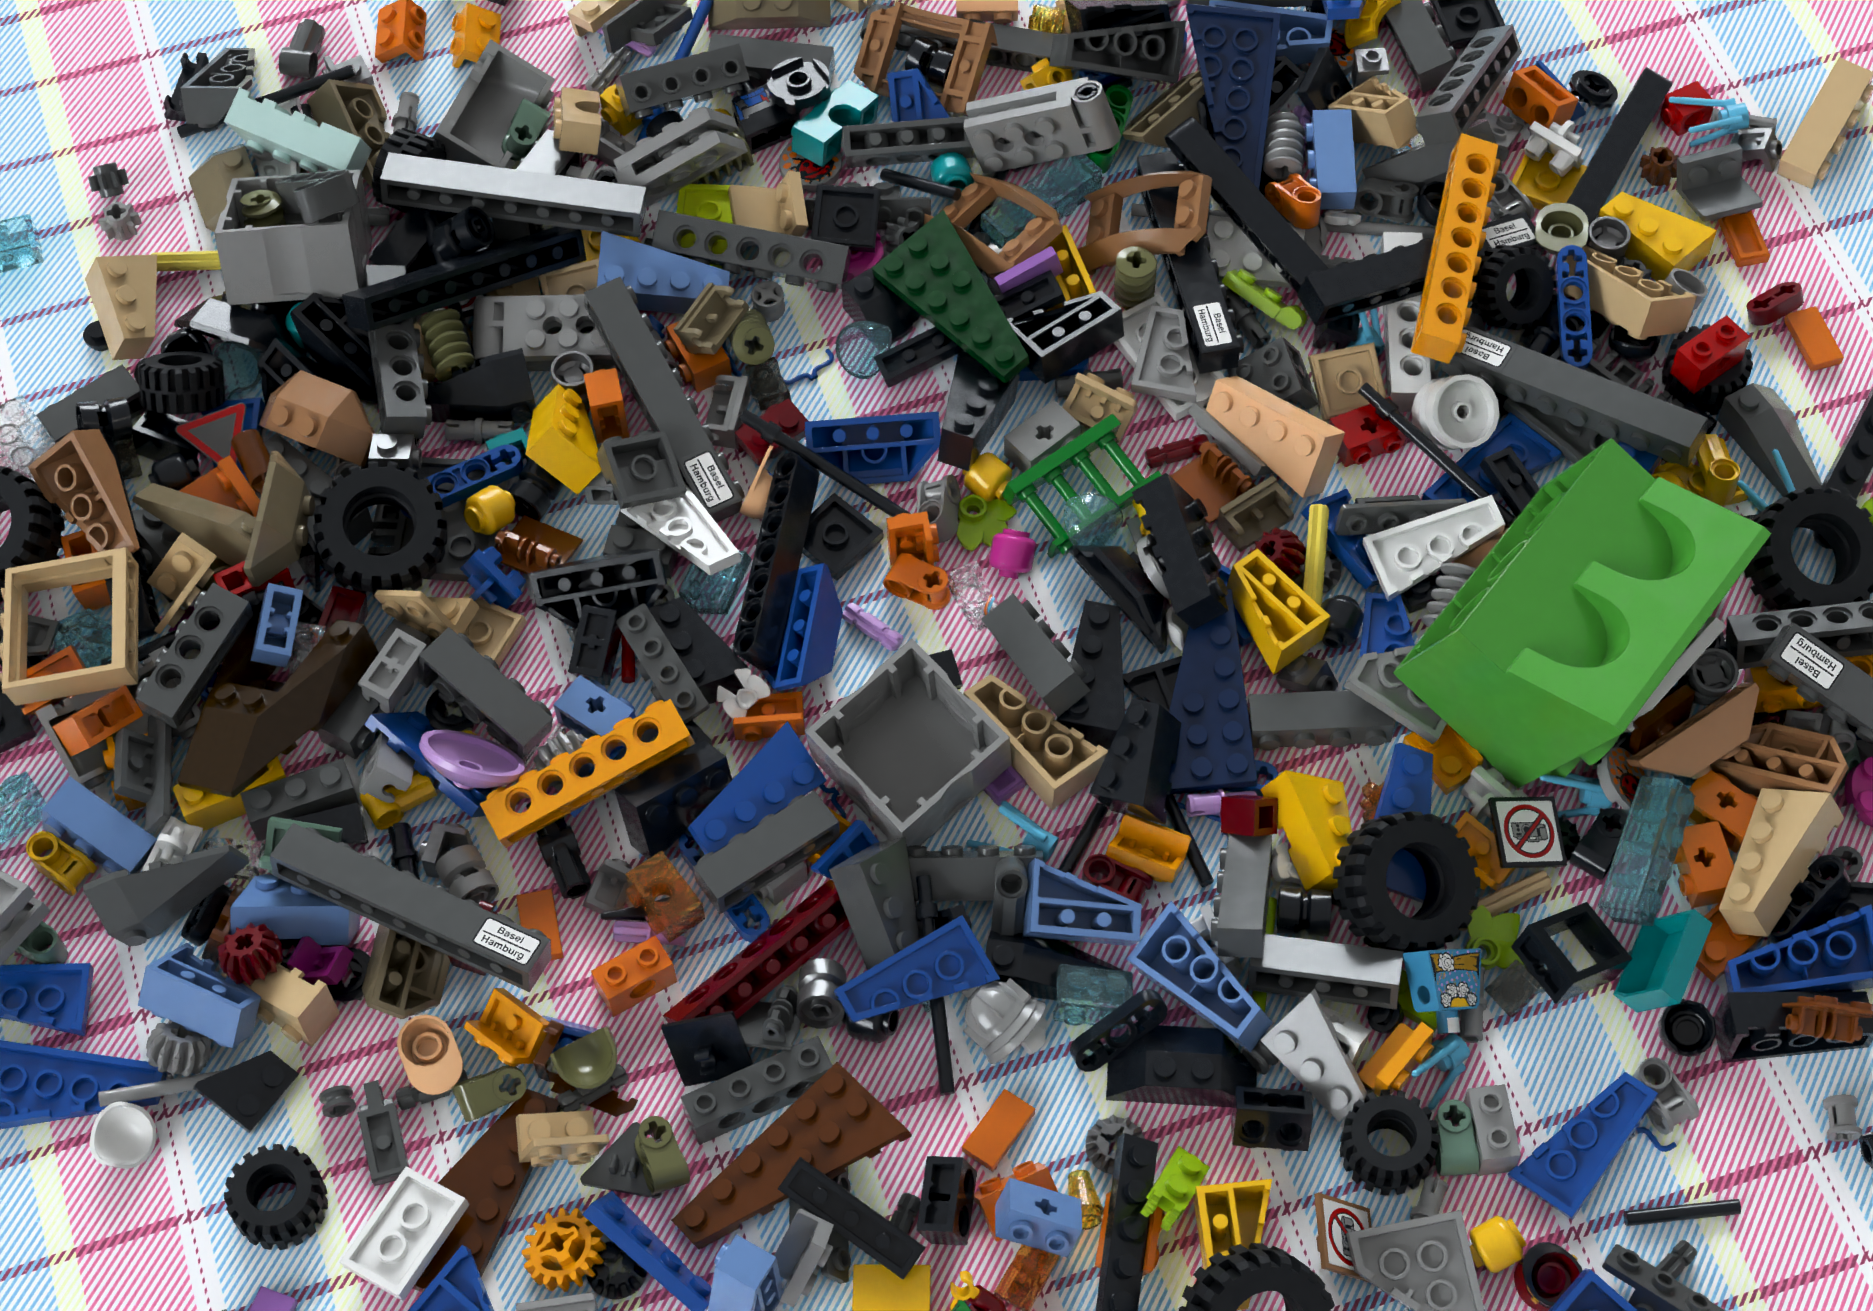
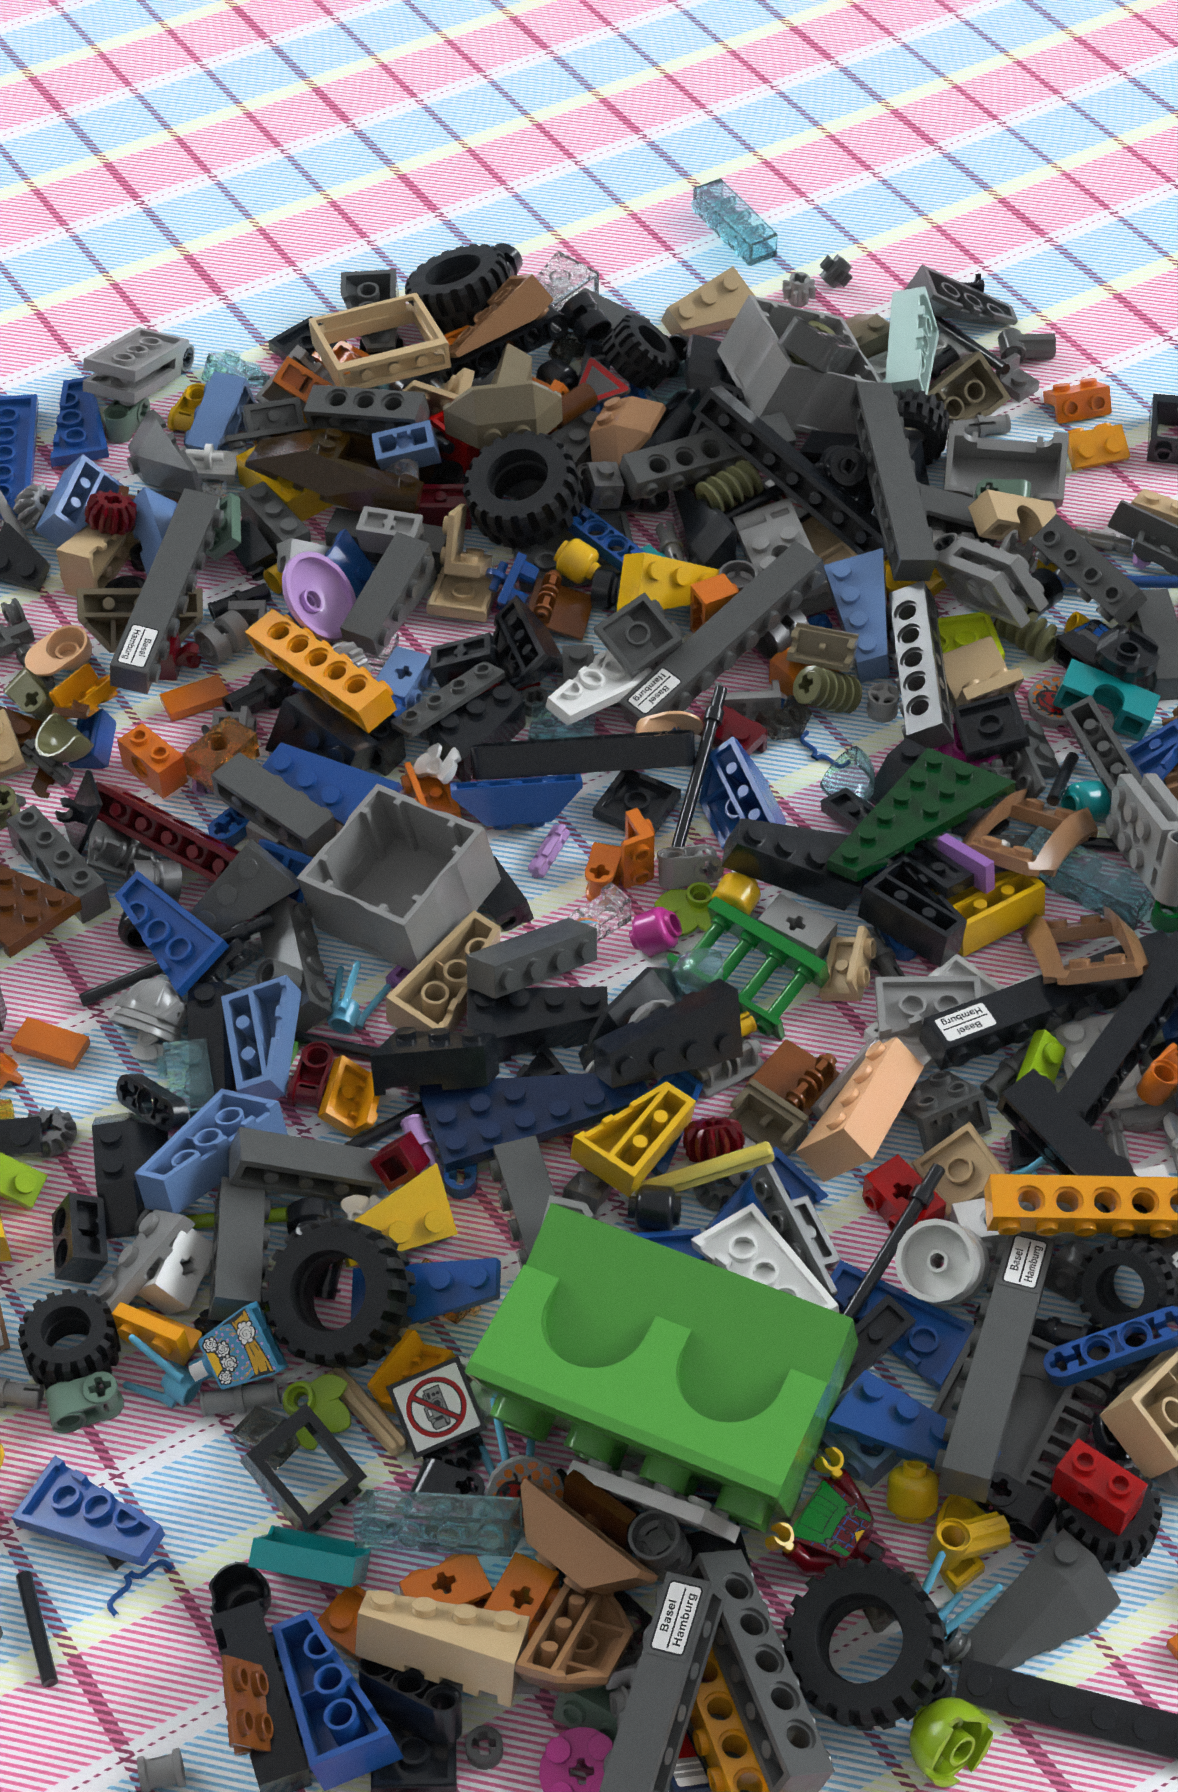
camera: 75 degrees right, 10 degrees down
(320, 963) = (124, 564): magenta bracket -> none
(1134, 276) = (1011, 955): olive piece -> none
(1174, 451) = (824, 1042): dark red axle -> none
(1493, 1129) = (97, 1430): light grey brick -> none
(1670, 1096) = (153, 1592): light grey piece -> none

